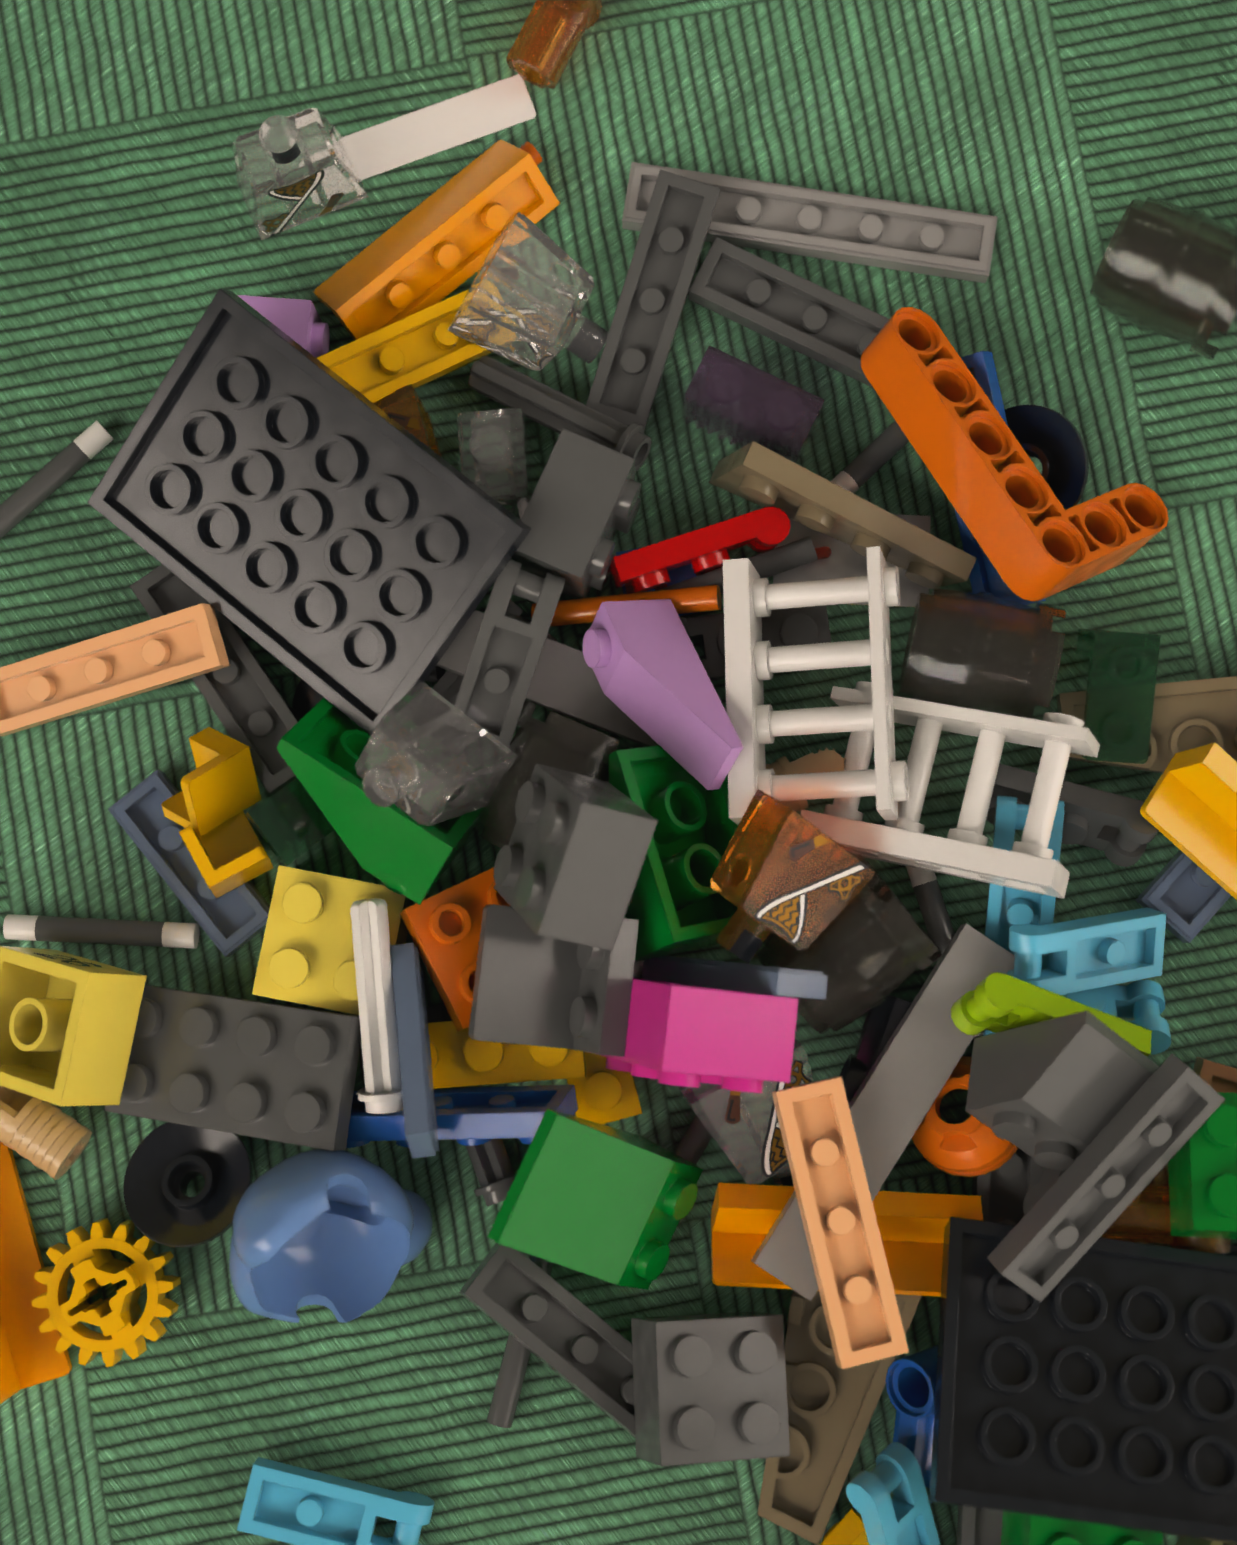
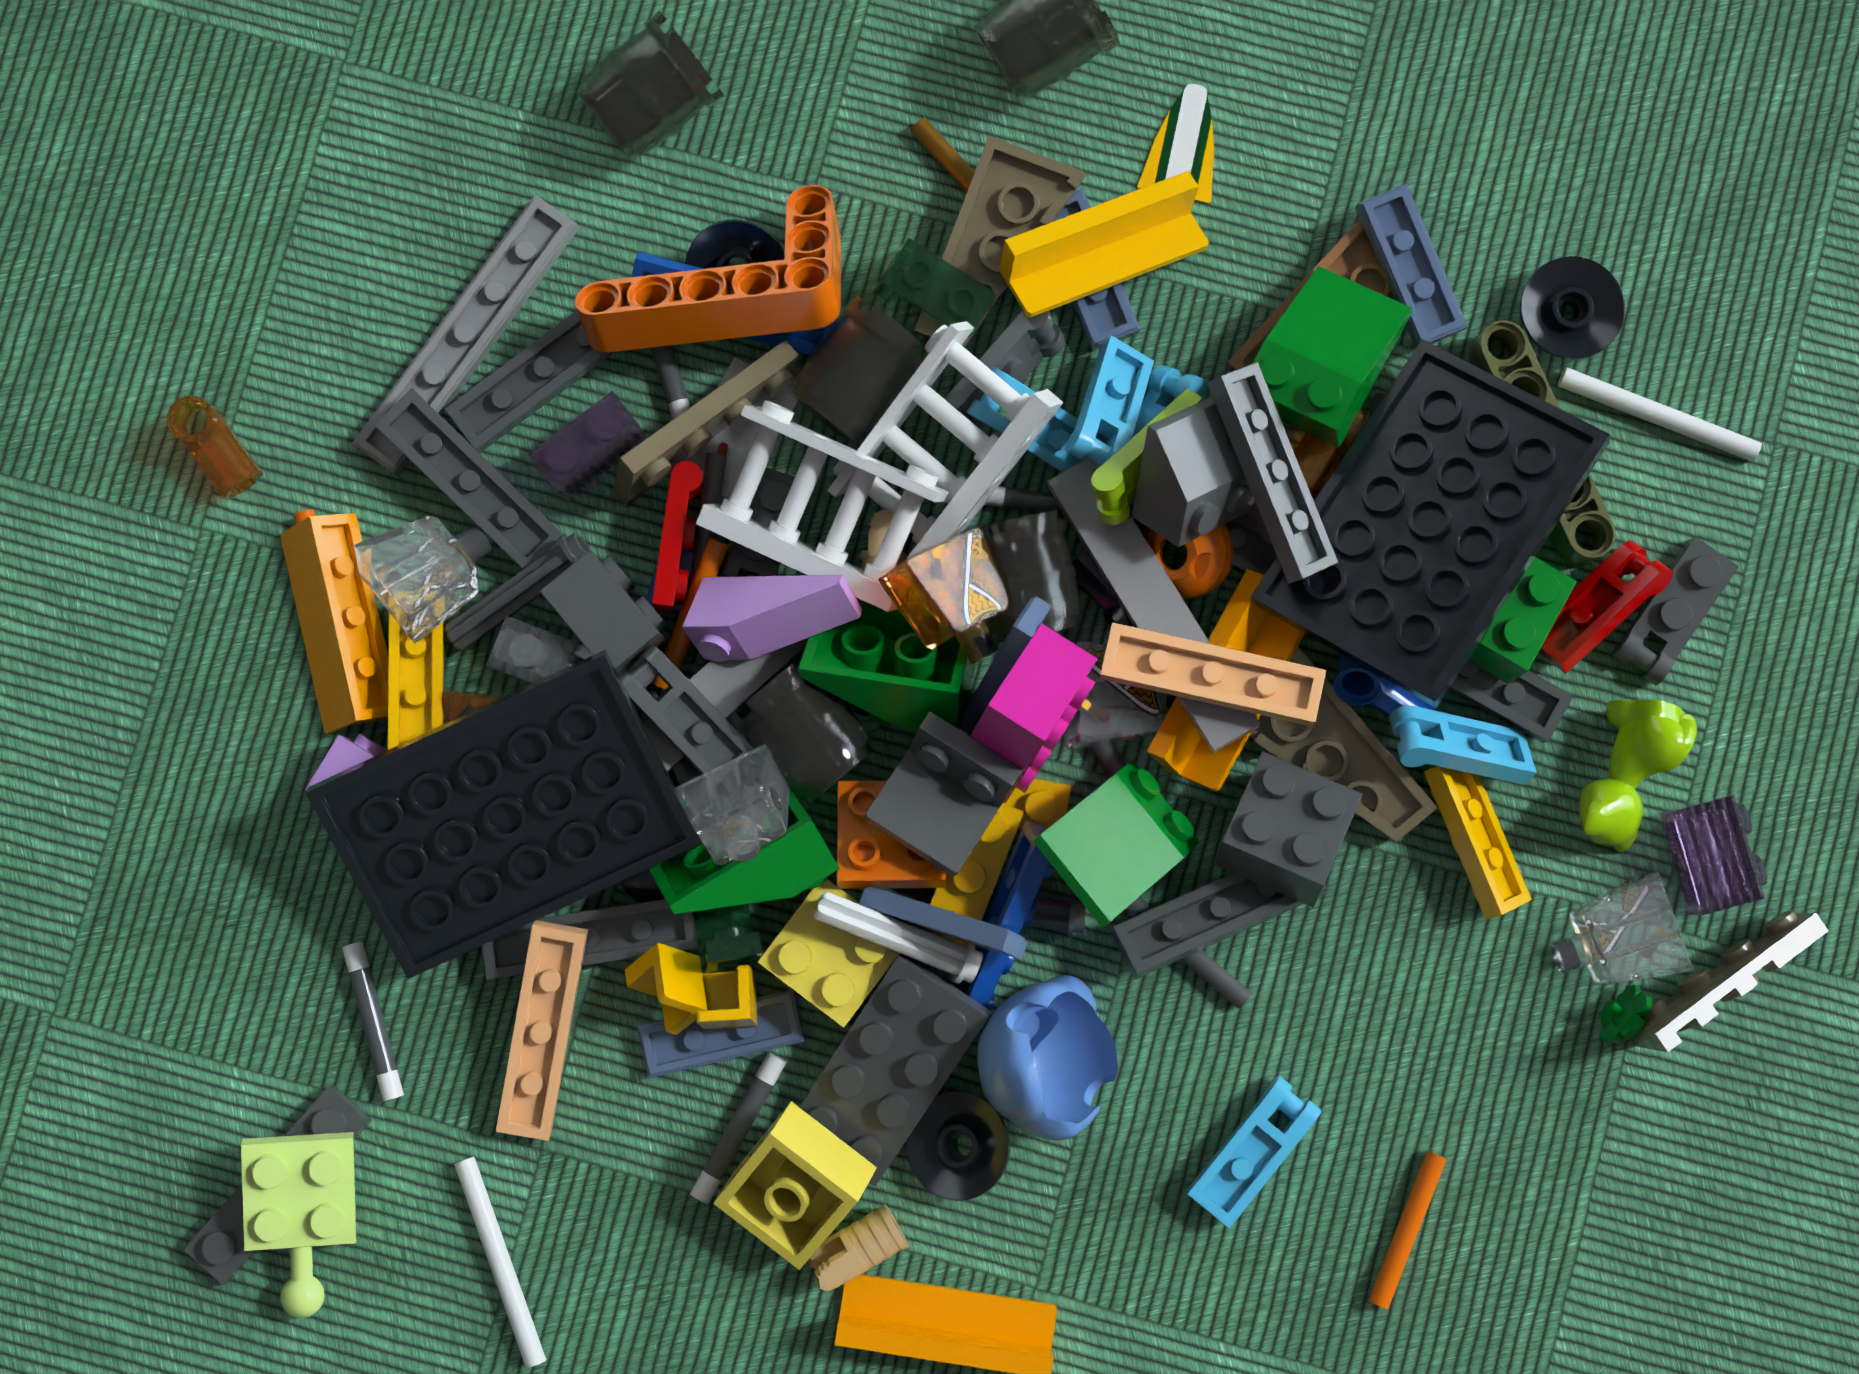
camera: 70 degrees left, 0 degrees up
(115, 1315) = (1036, 1246): yellow gear -> none
(294, 171) = (230, 702): clear torso -> none
(440, 126) = (242, 597): white sticker -> none
(573, 856) = (860, 734): dark grey brick -> none

